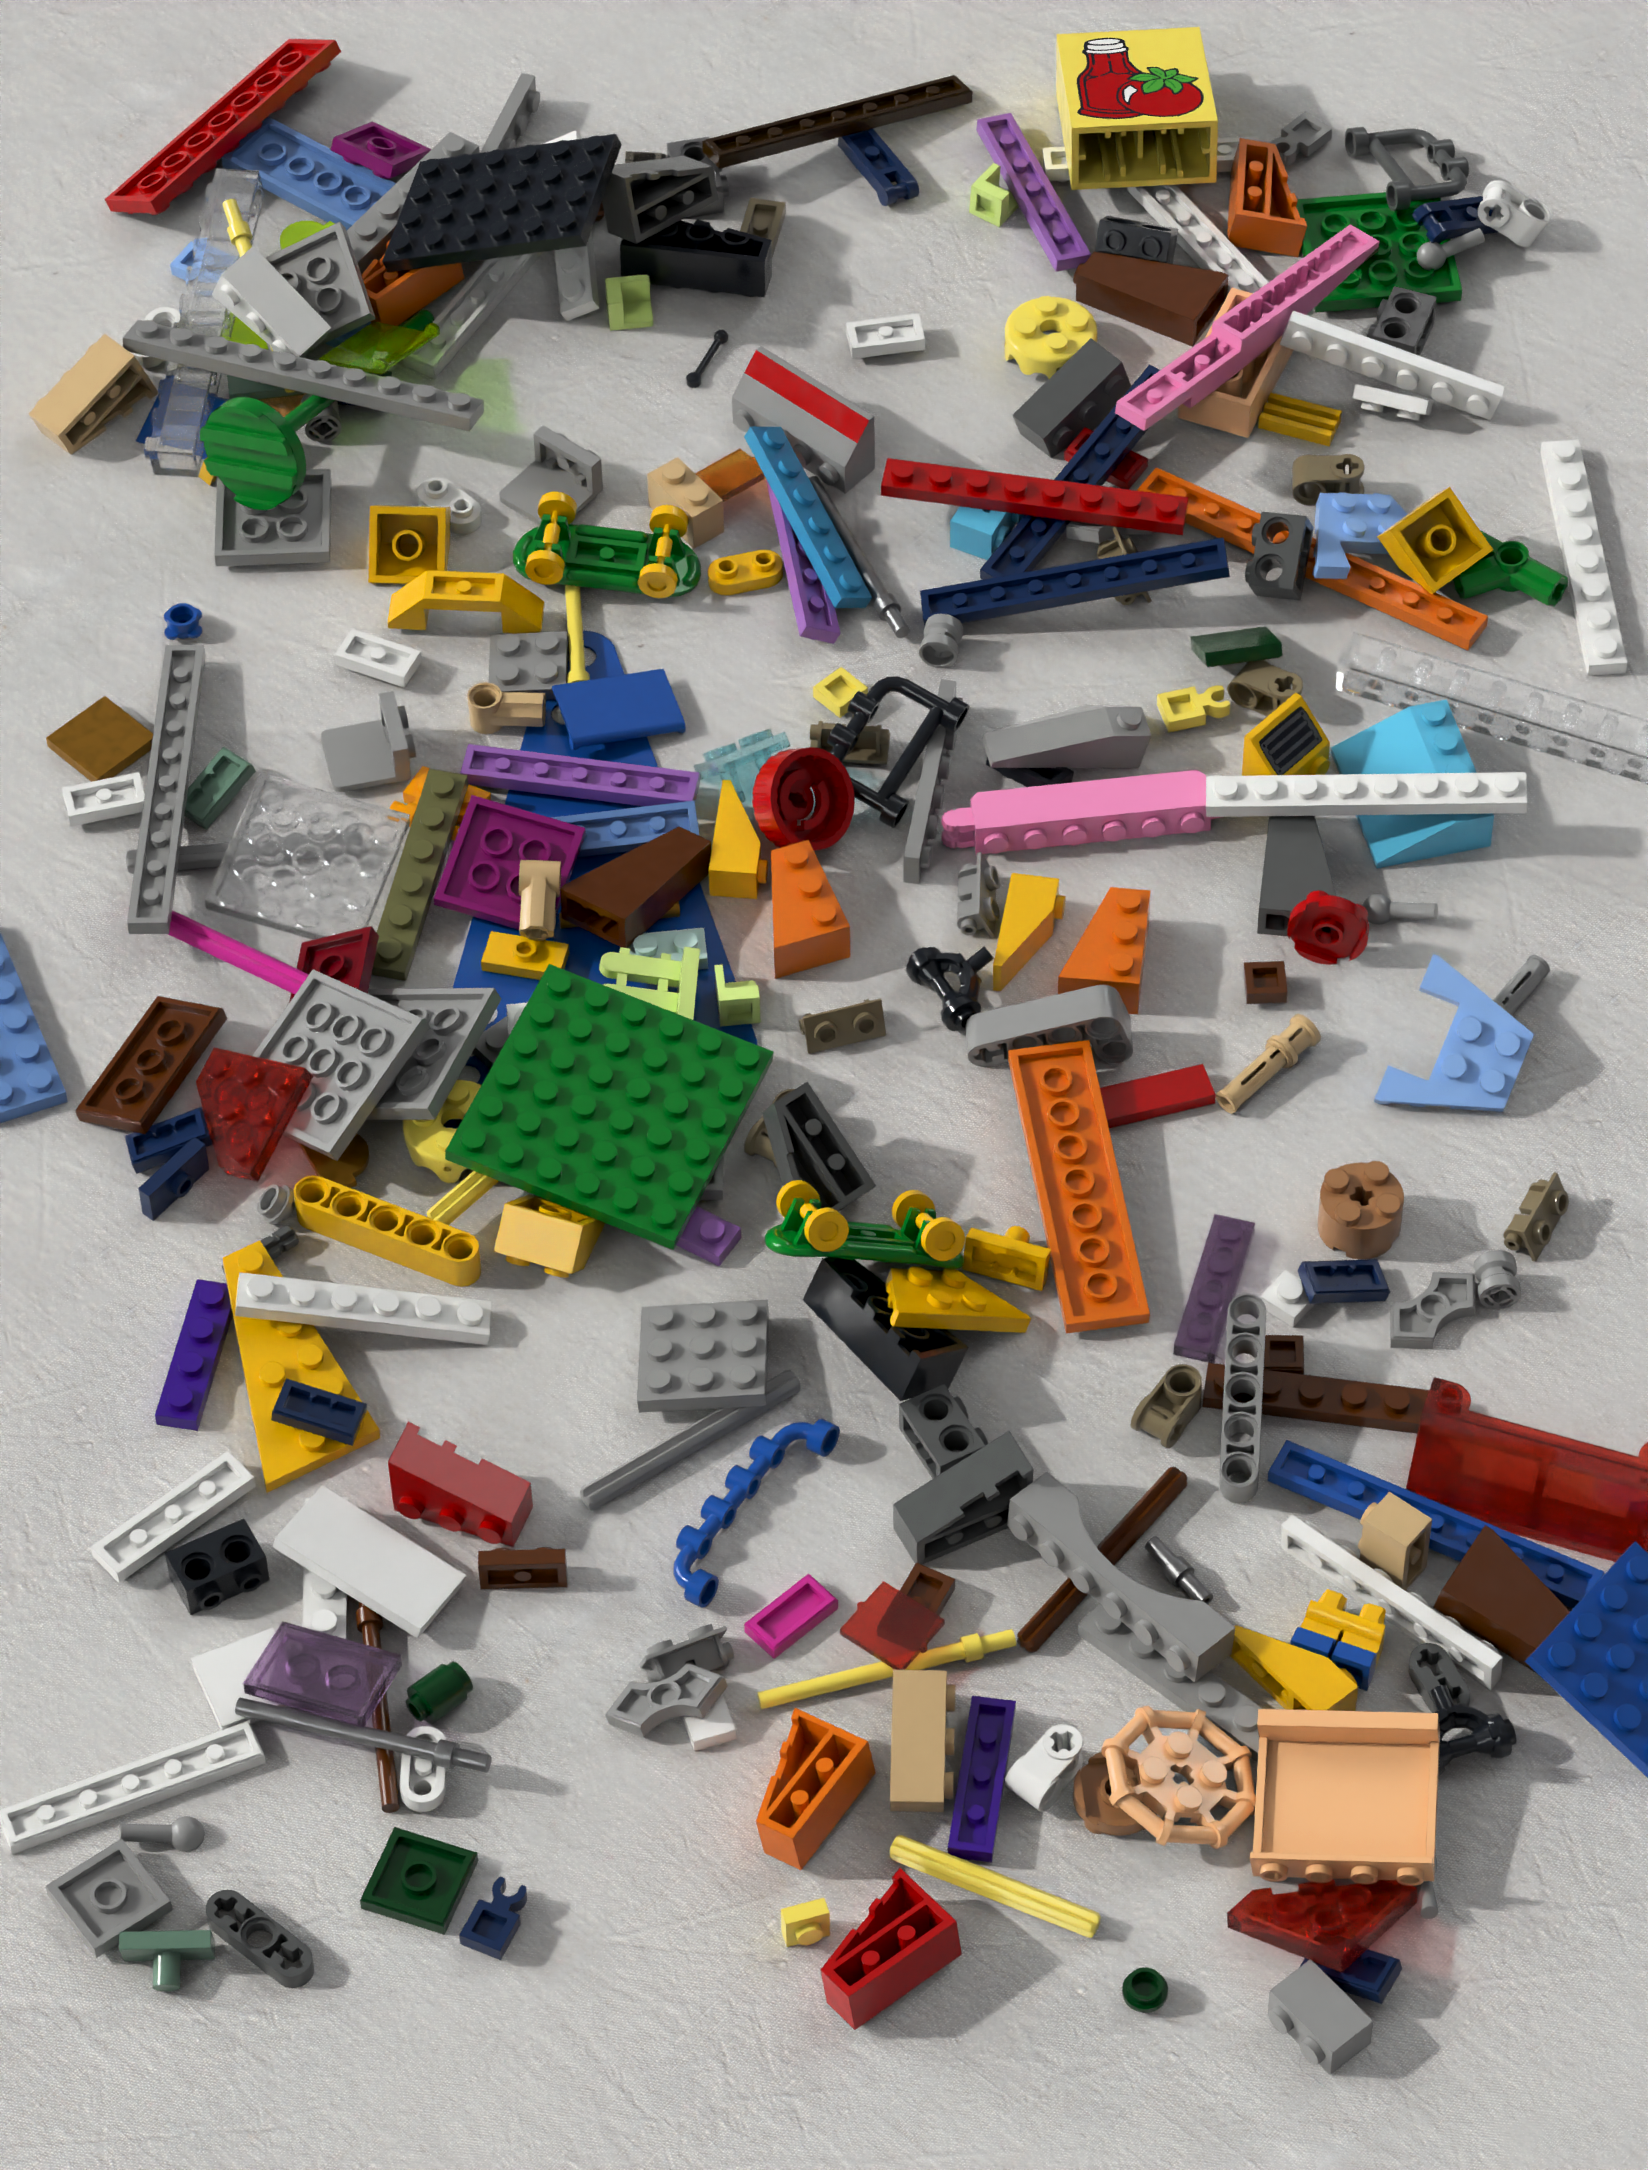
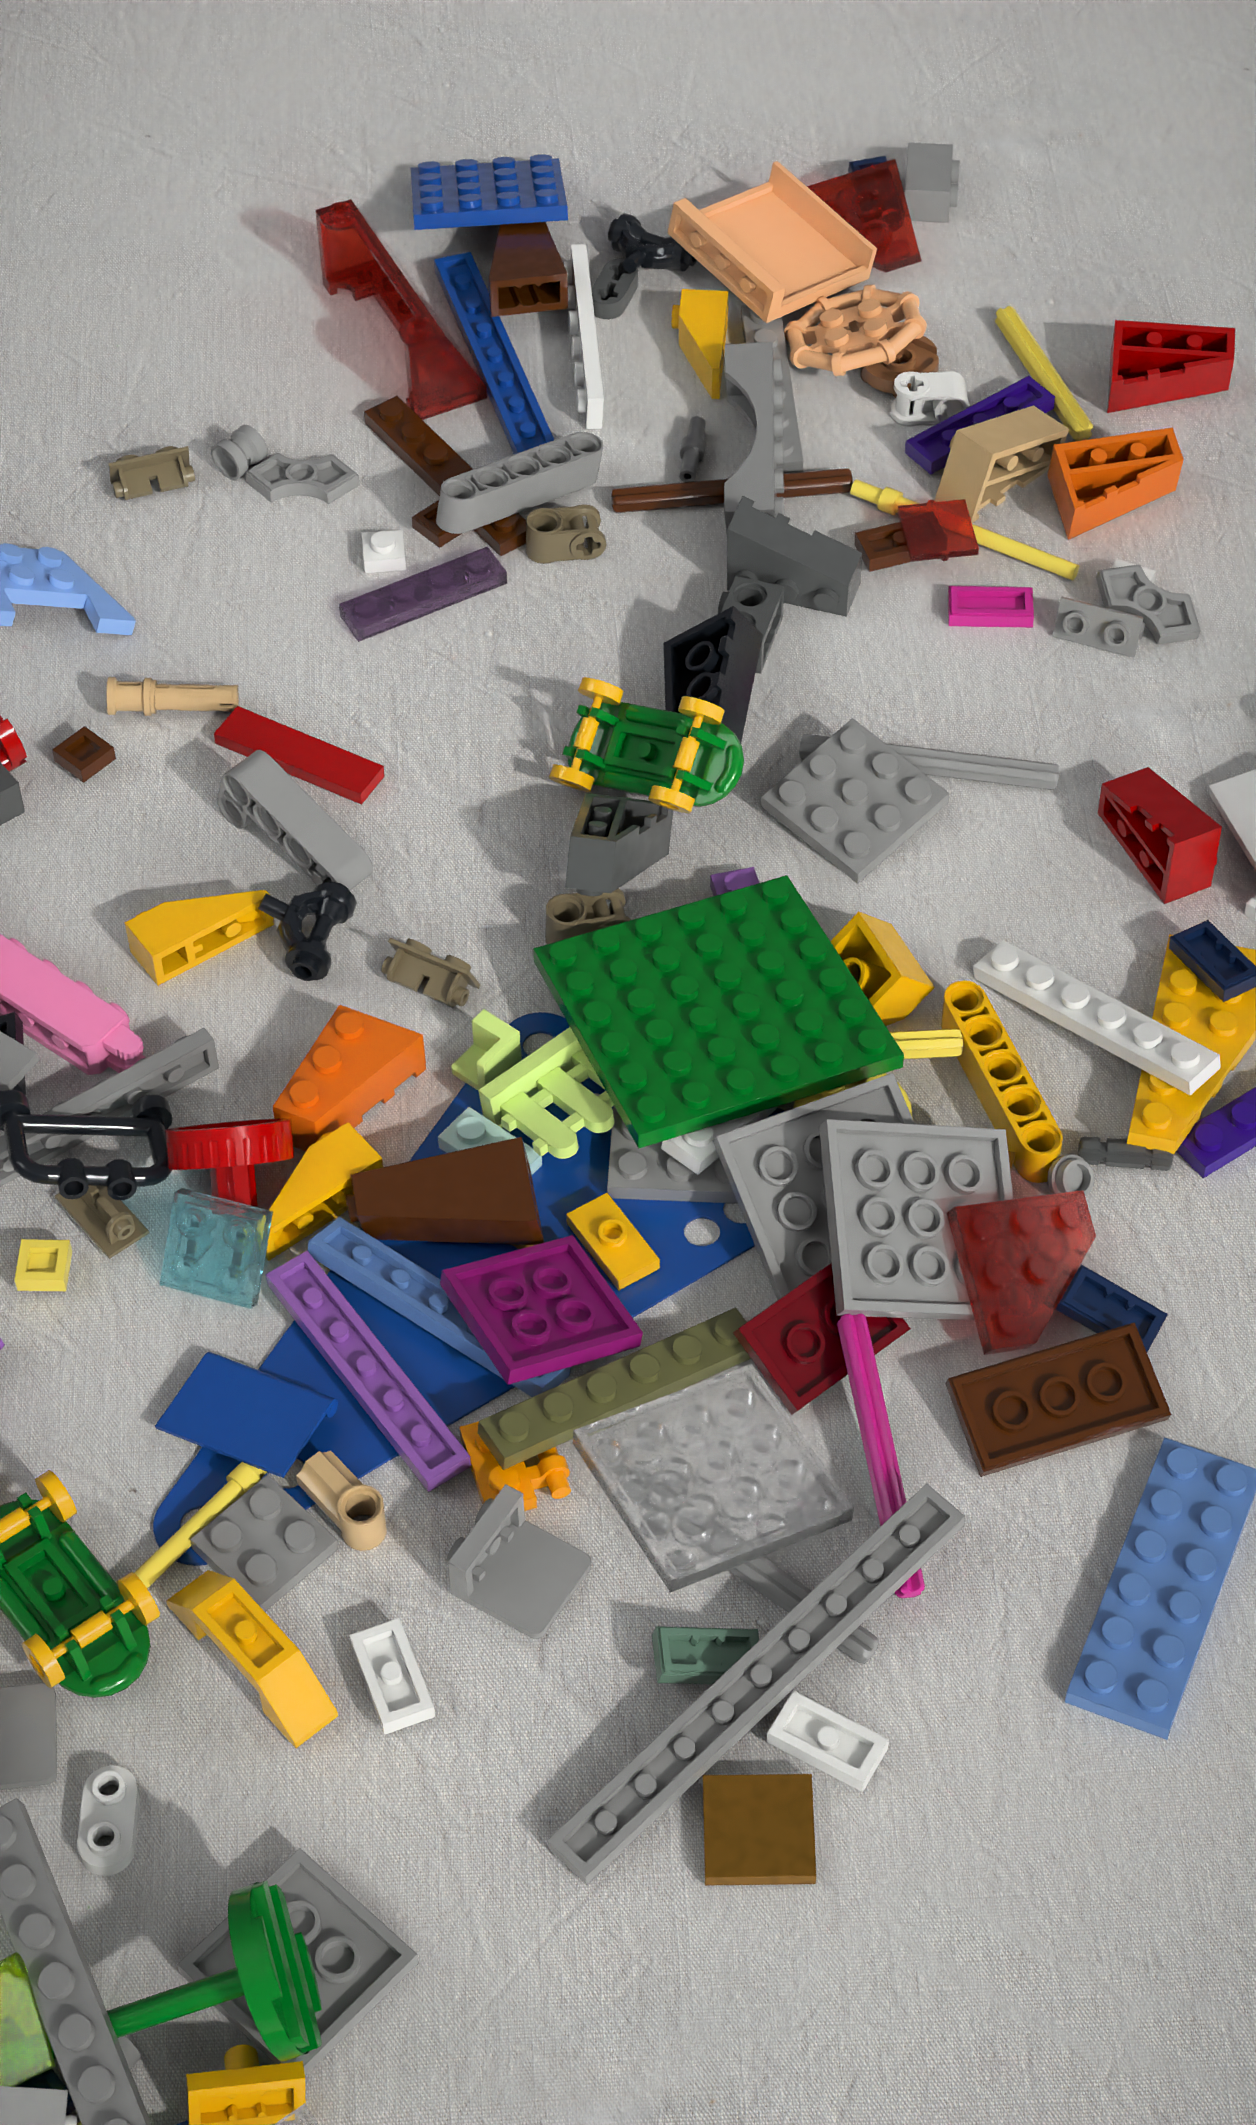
camera: 135 degrees left, 0 degrees up
(173, 1179) = (1147, 1265): dark blue plate -> none
(182, 622) = (530, 1894): blue plate -> none
(407, 542) = (205, 1790): yellow slope -> none
(522, 1568) = (1163, 754): reddish brown plate -> none
(538, 891) = (551, 1245): tan piece -> none
(743, 1484) = (1009, 690): blue bar -> none
(805, 1922) = (1198, 423): light yellow plate -> none
(948, 1302) = (651, 676): yellow wing -> none
(980, 886) = (174, 996): light grey hinge -> none
(1007, 1257) = (539, 705): yellow tile -> none
(1078, 1187) = (427, 710): orange plate -> none
(1112, 947) = (160, 850): orange wedge -> none
(1145, 1990) = (1015, 264): dark green plate -> none
(1343, 1281) = (338, 523): dark blue plate -> none
(1343, 1637) = (647, 339): yellow hips -> none
(1360, 1209) = (262, 548): medium nougat brick -> none
(1395, 1539) = (546, 340): tan brick -> none

